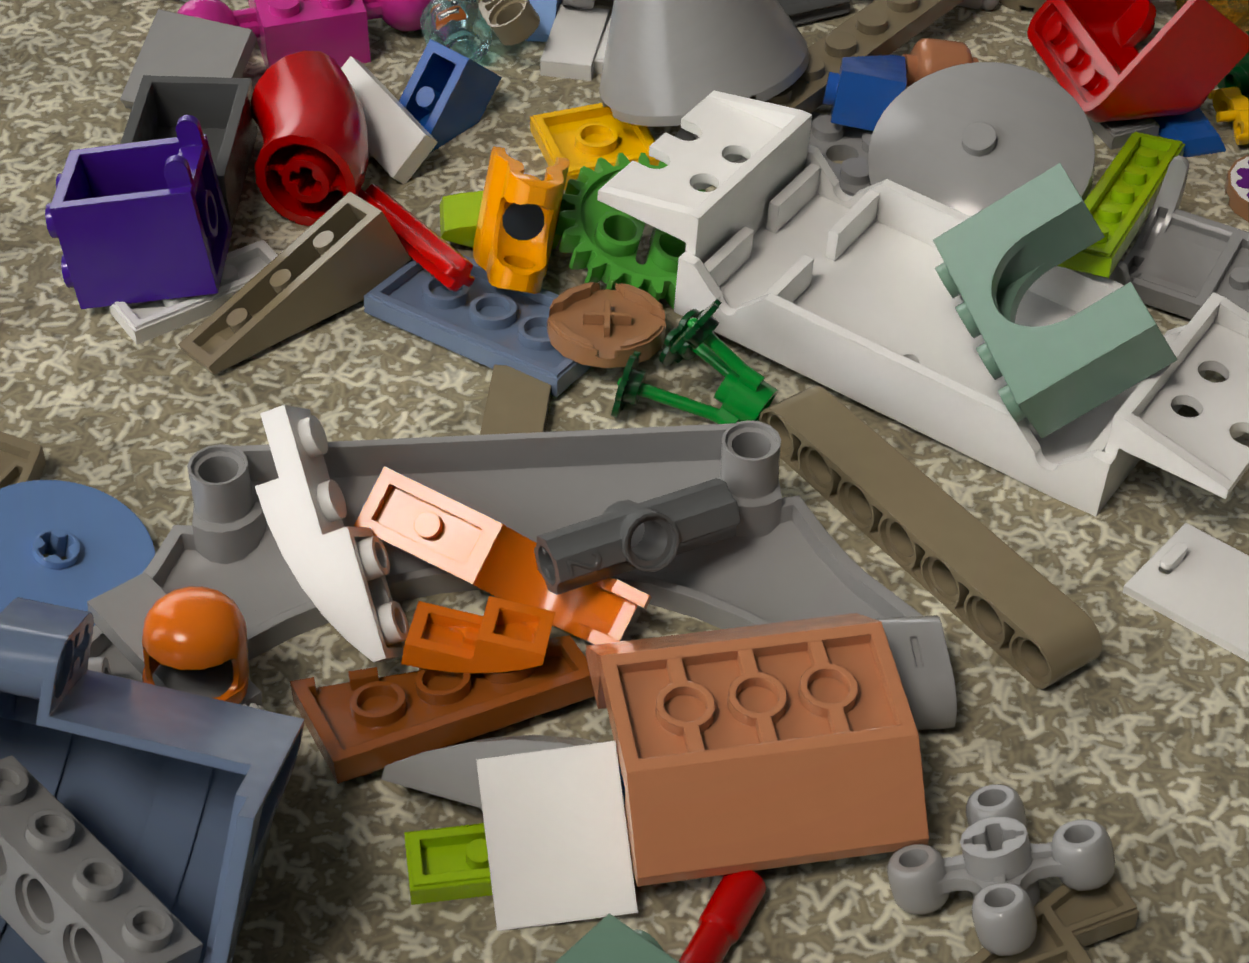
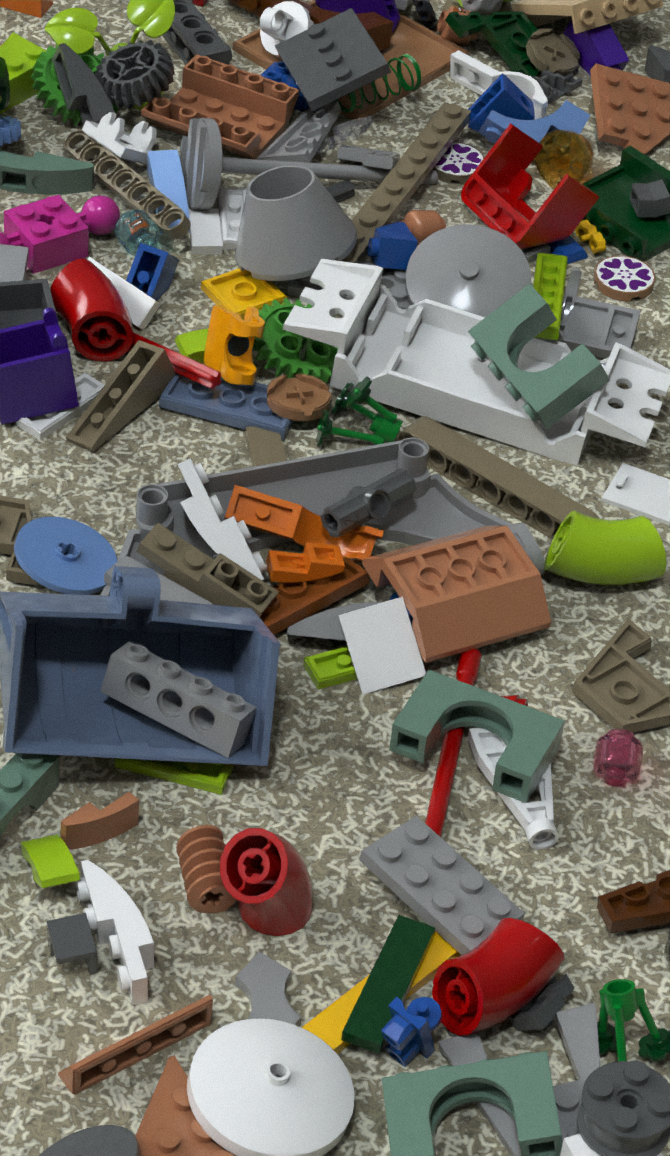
camera: 20 degrees left, 0 degrees up
(195, 632) = (183, 575): orange helmet -> none
(289, 641) = (213, 579): none -> dark tan slope
(1001, 868) = (587, 629): light grey gear -> none
(1090, 702) = (606, 550): none -> lime brick

